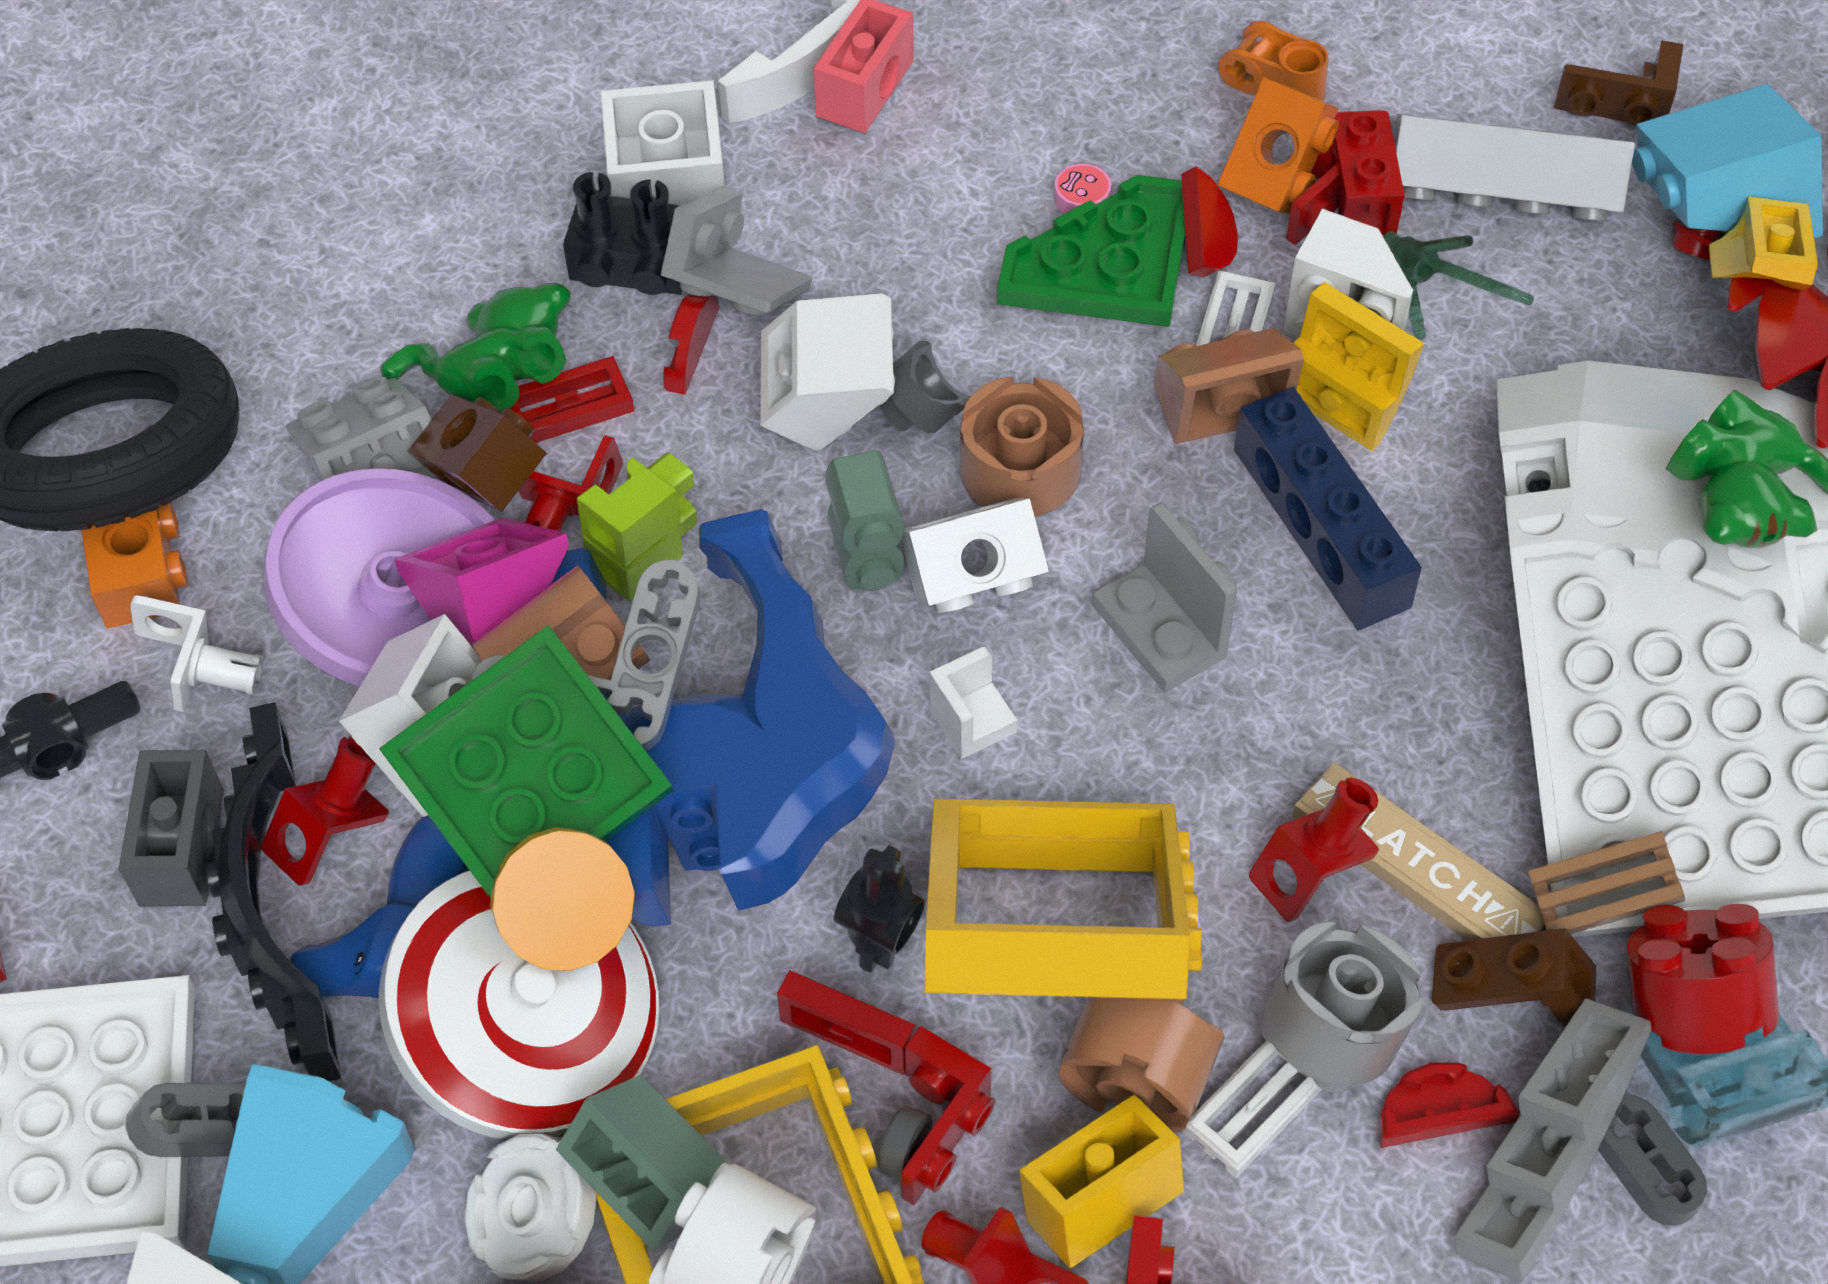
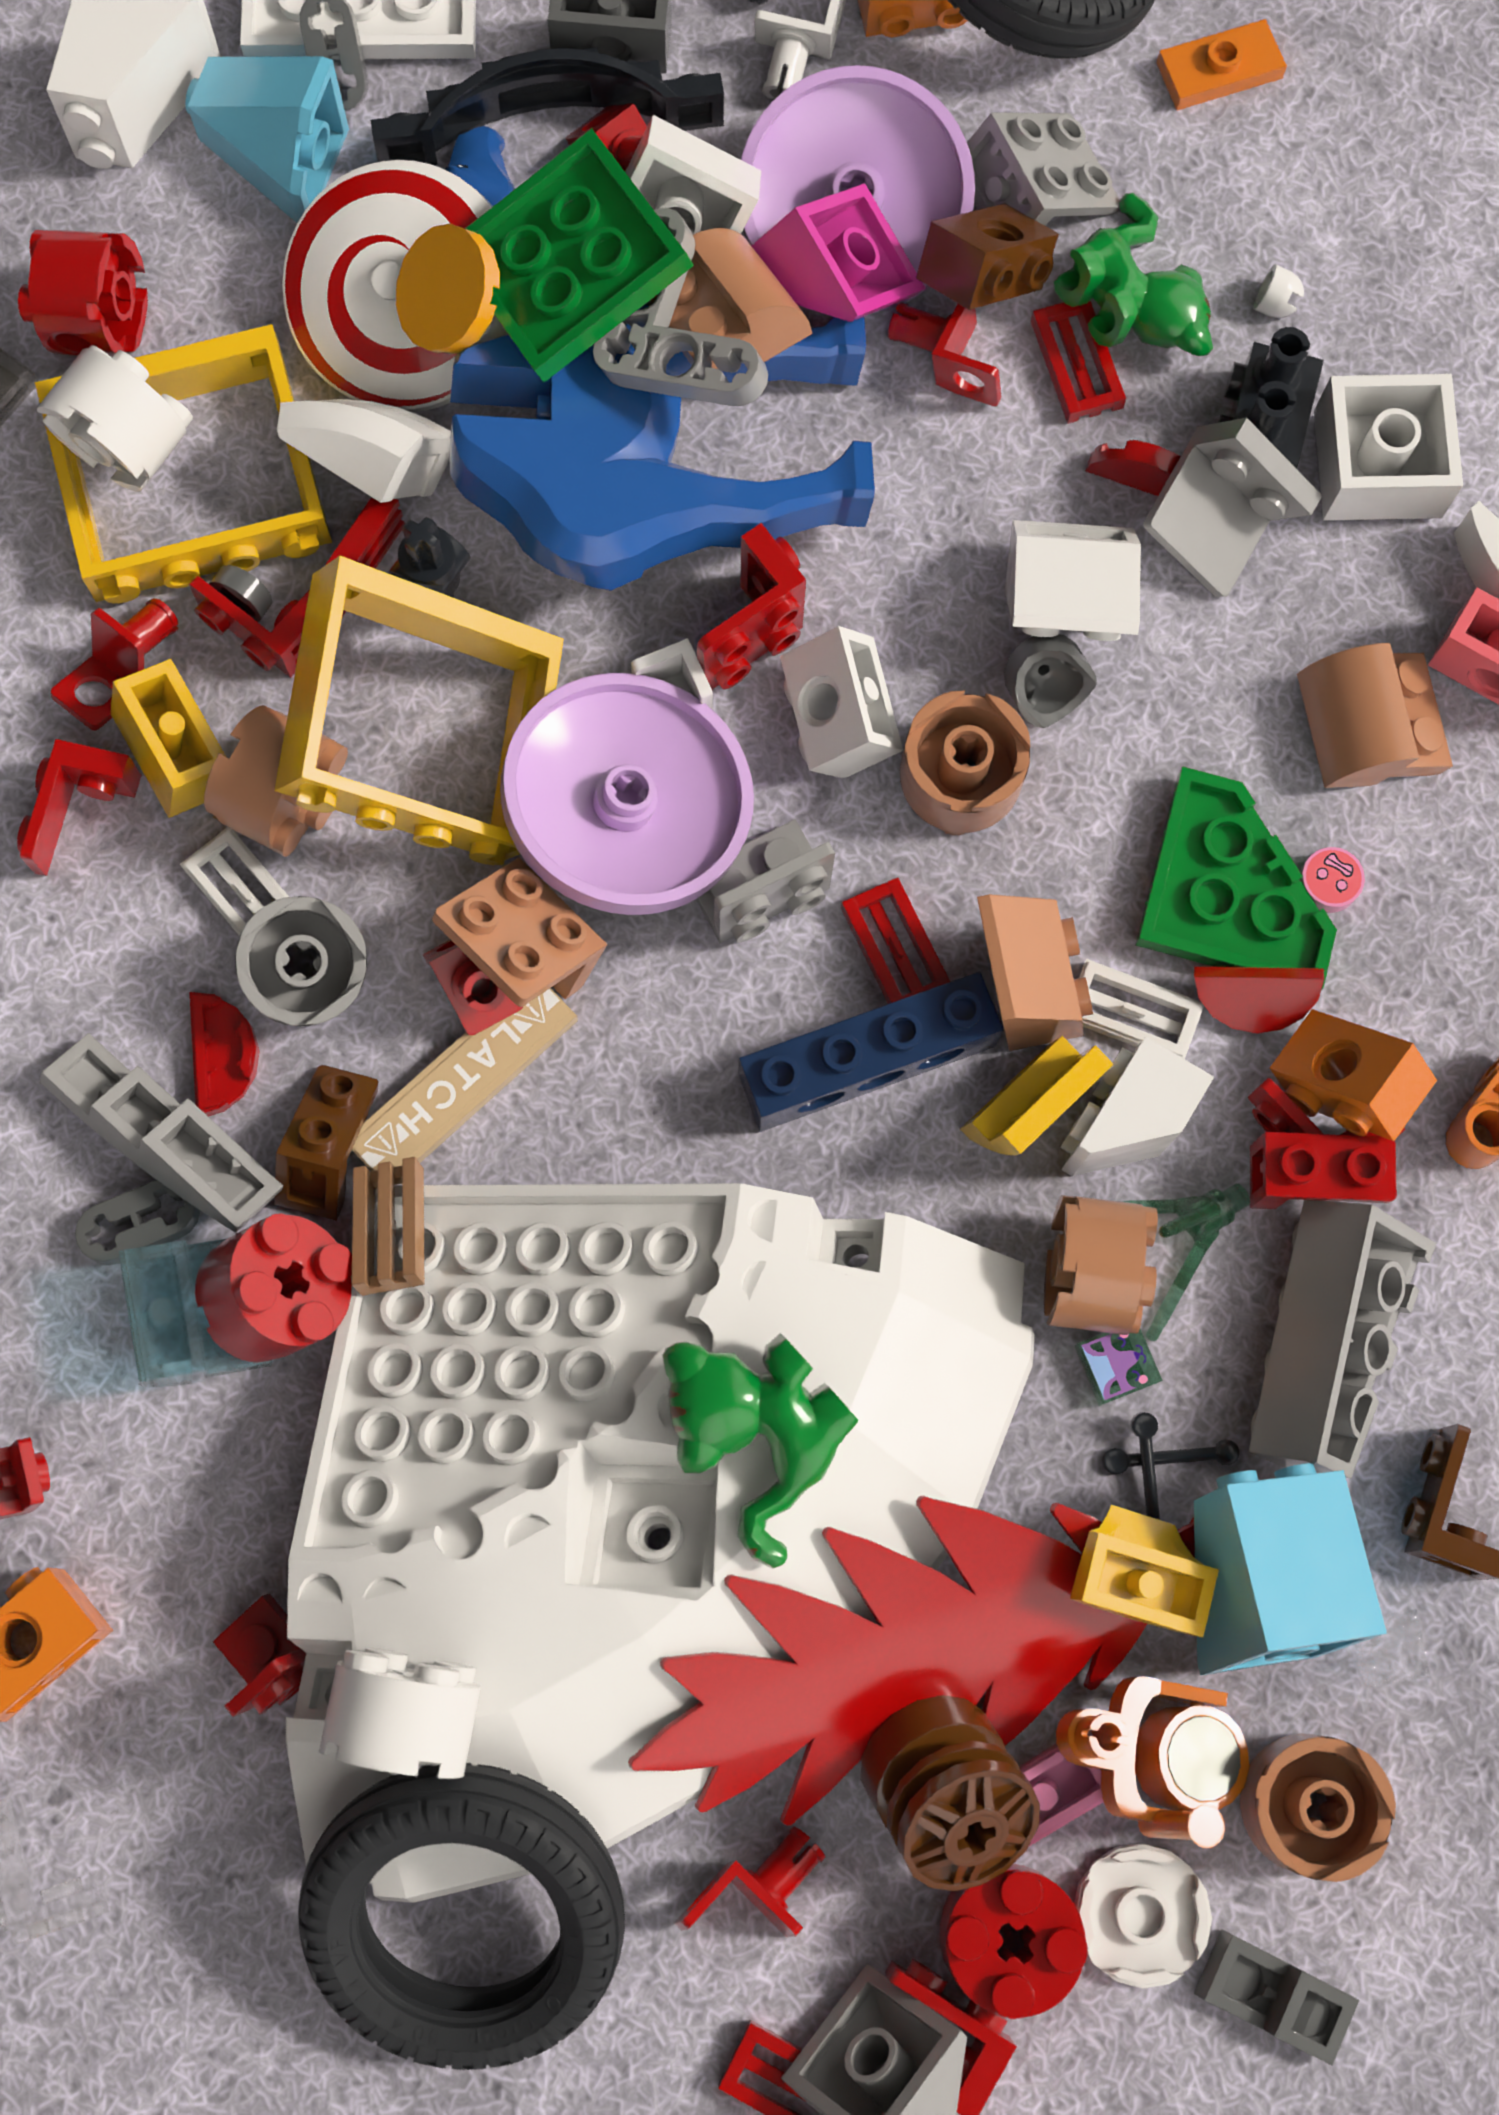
camera: 90 degrees right, 20 degrees up
(234, 305) = (1221, 64): none -> orange plate
(482, 258) = (1276, 291): none -> white hinge
(528, 1210) = (223, 298): white tile -> none
(638, 521) = (894, 402): lime hips -> none
(639, 1157) = (226, 368): sand green brick -> none
(726, 1000) = (369, 445): none -> white slope
(865, 520) = (876, 597): sand green brick -> none
(880, 601) = (769, 622): none -> red bracket
(929, 161) = (1373, 716): none -> nougat brick
(1104, 717) = (626, 793): none -> lavender dish
(1207, 482) = (914, 928): none -> red tile
(1275, 789) = (521, 934): none -> nougat bracket
(1493, 312) = (1098, 1265): none -> nougat brick
(1562, 318) = (1117, 1365): none -> tile
(1617, 290) = (1145, 1427): none -> black hinge
(1647, 317) = (1225, 1452): none -> black hinge

